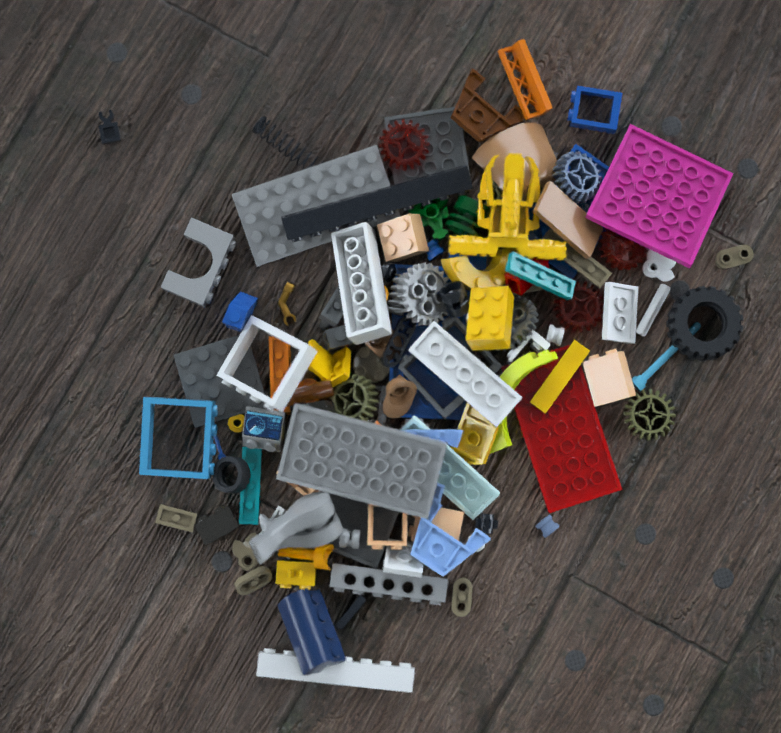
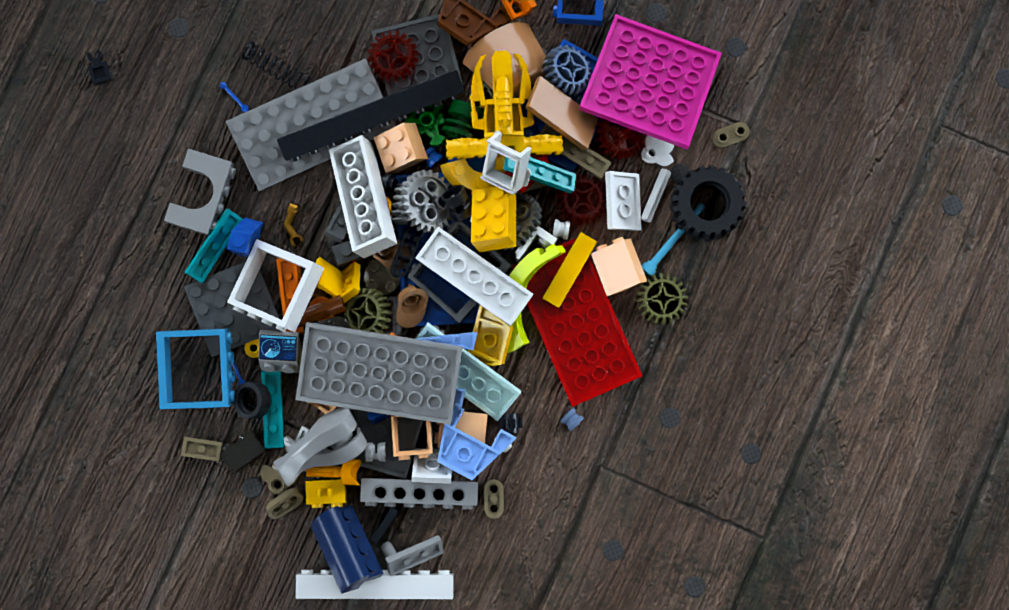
camera: 10 degrees left, 0 degrees up
(207, 317) = (213, 246): none -> teal plate
(250, 182) = (244, 108): none -> blue hinge
(354, 504) = (376, 417): none -> blue tile
(376, 645) = (411, 556): none -> light grey piece
(499, 279) = (521, 172): none -> white piece

